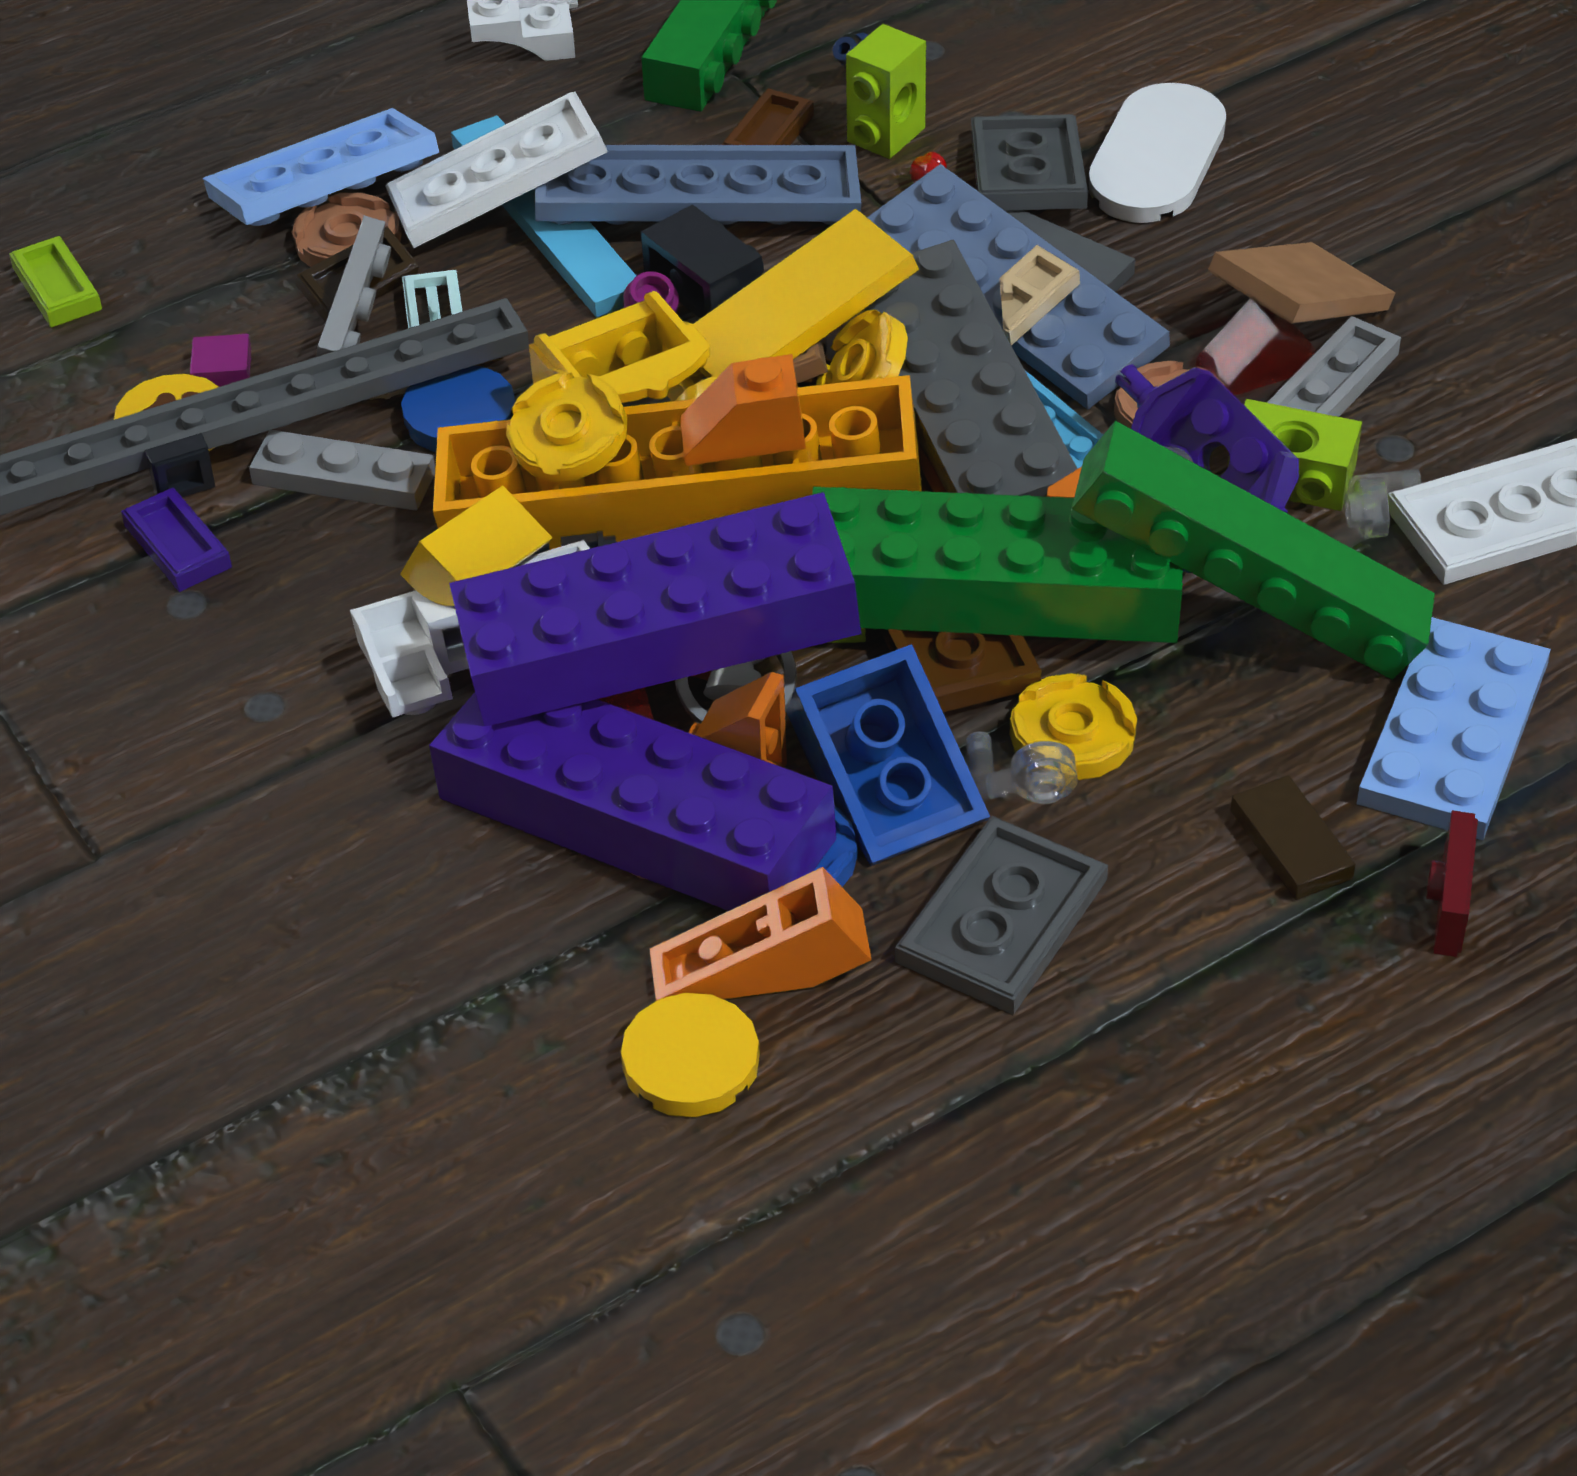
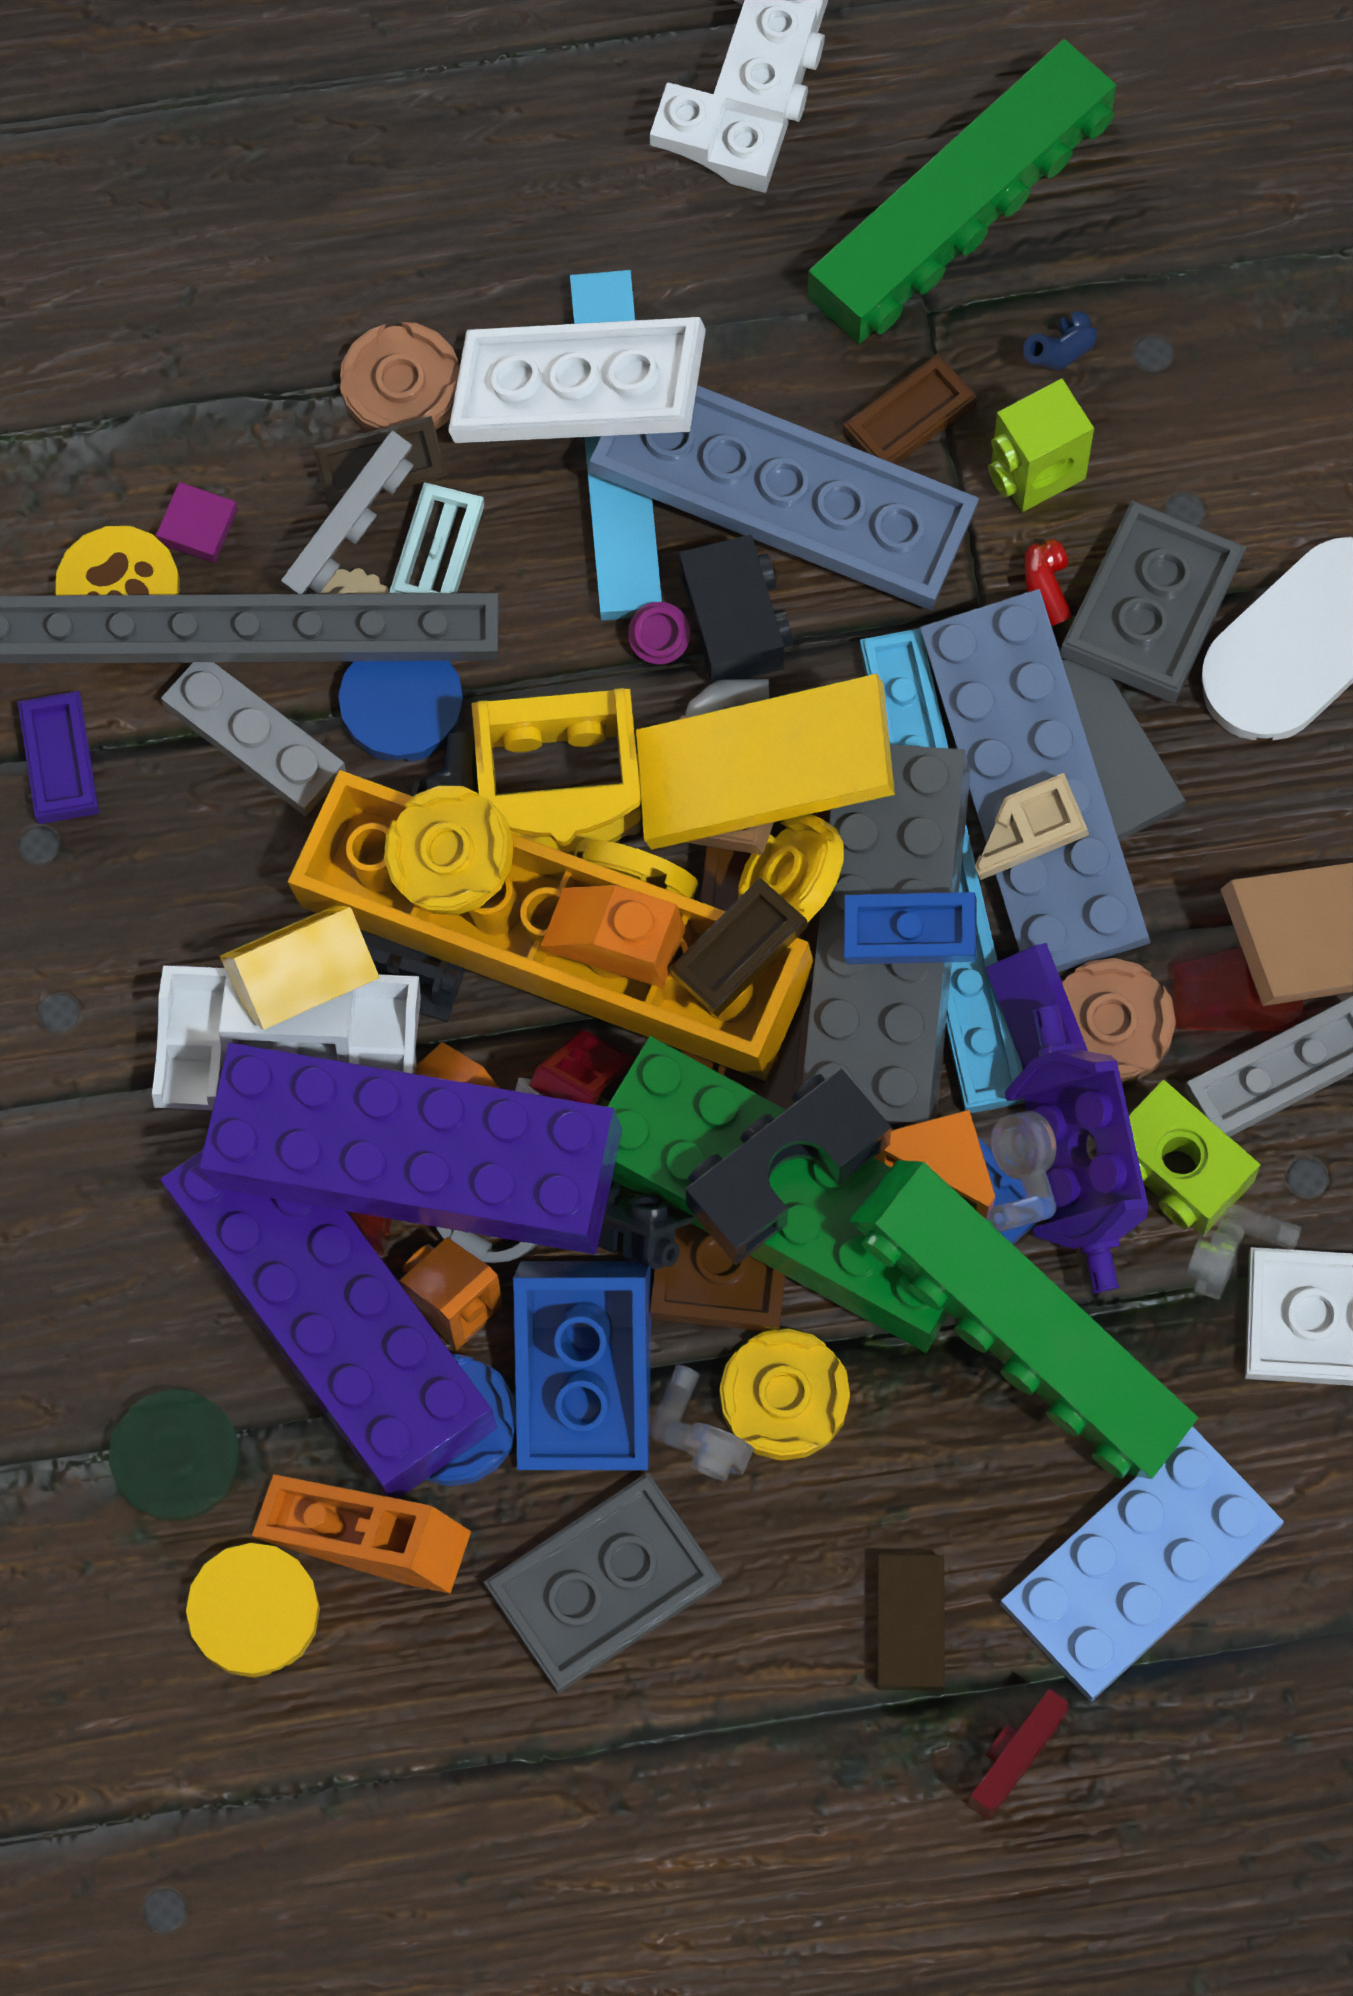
camera: 25 degrees right, 25 degrees up
(55, 281) = (79, 323): lime tile -> none
(181, 465) = (92, 674): black tile -> none
(320, 166) = (407, 280): light blue plate -> none
(547, 970) = (174, 1455): none -> clear green tile
(854, 394) = (738, 947): none -> dark brown tile
(883, 631) = (646, 1227): none -> black hinge
(972, 526) = (826, 1125): none -> black arch
(987, 341) = (910, 928): none -> blue plate
(1093, 393) = (1024, 985): none -> dark purple tile

